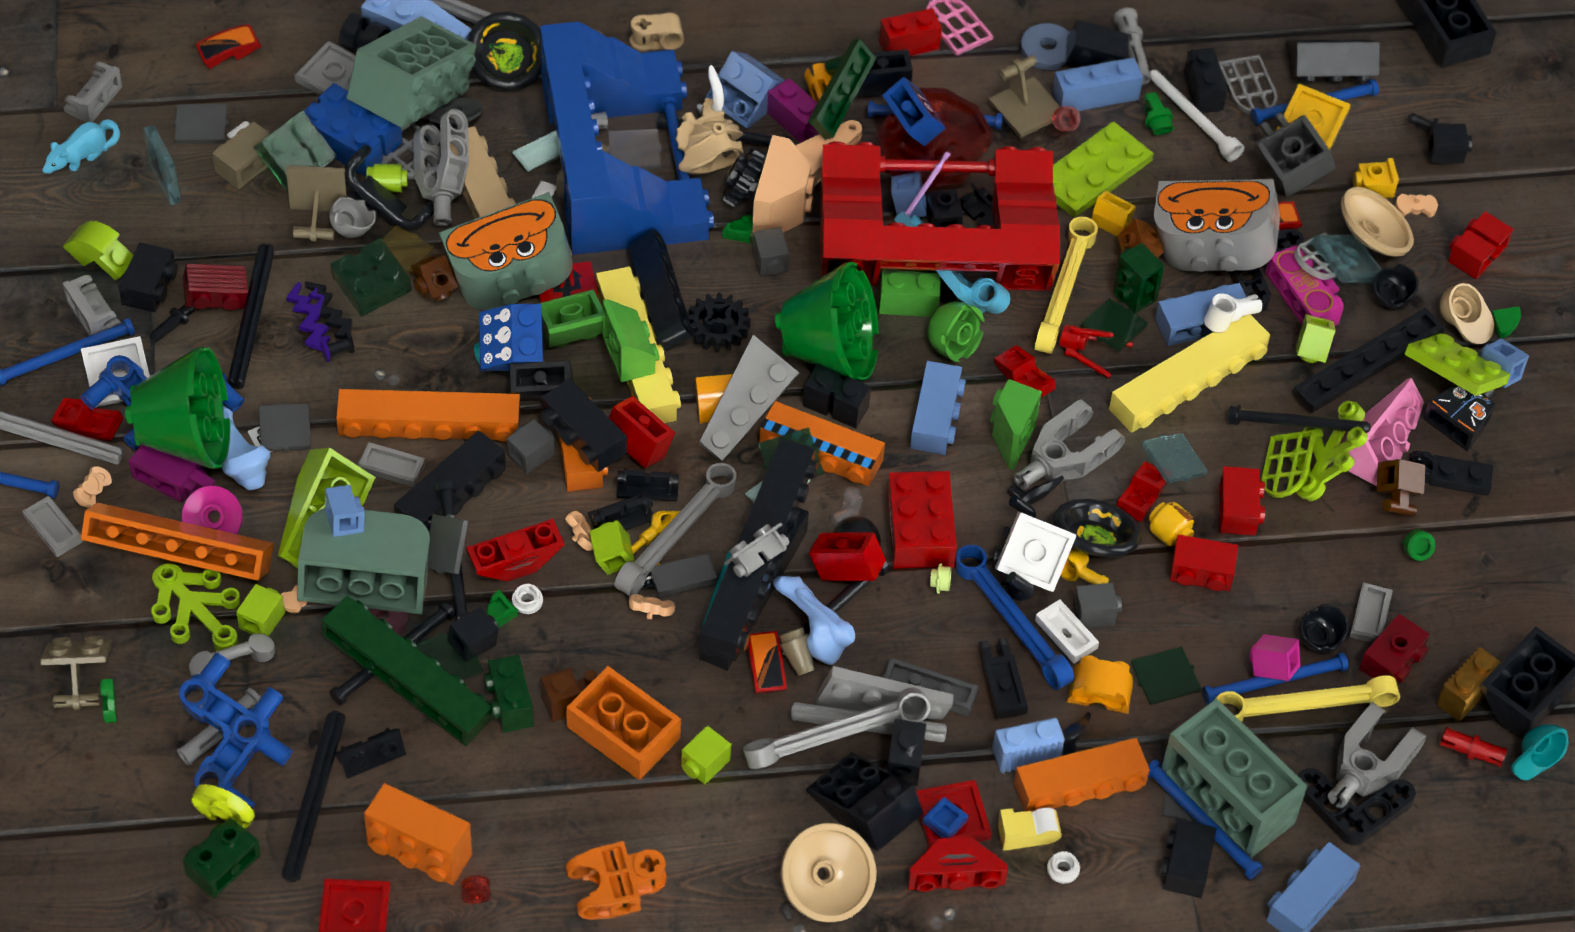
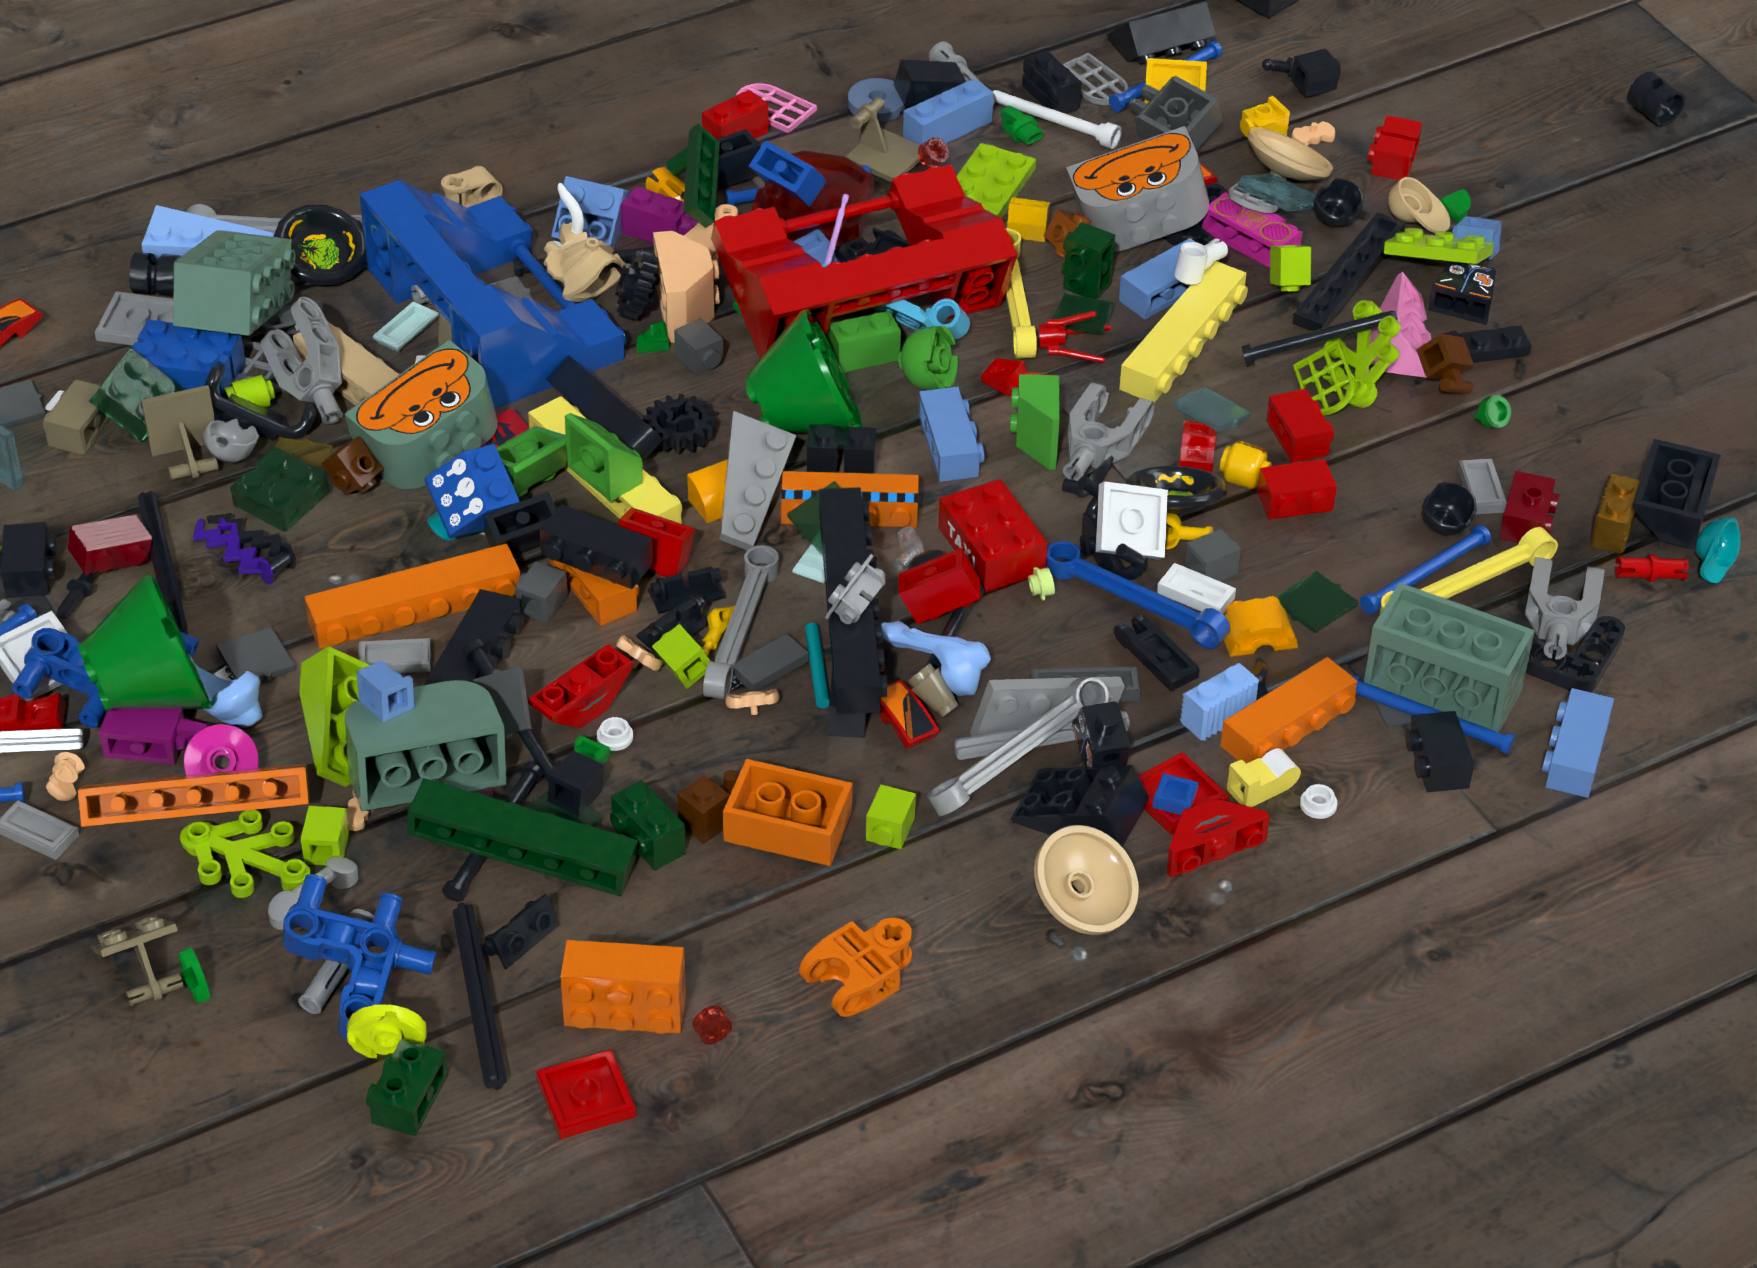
camera: 20 degrees left, 10 degrees down
(1275, 657) = (1418, 546): dark pink brick -> none

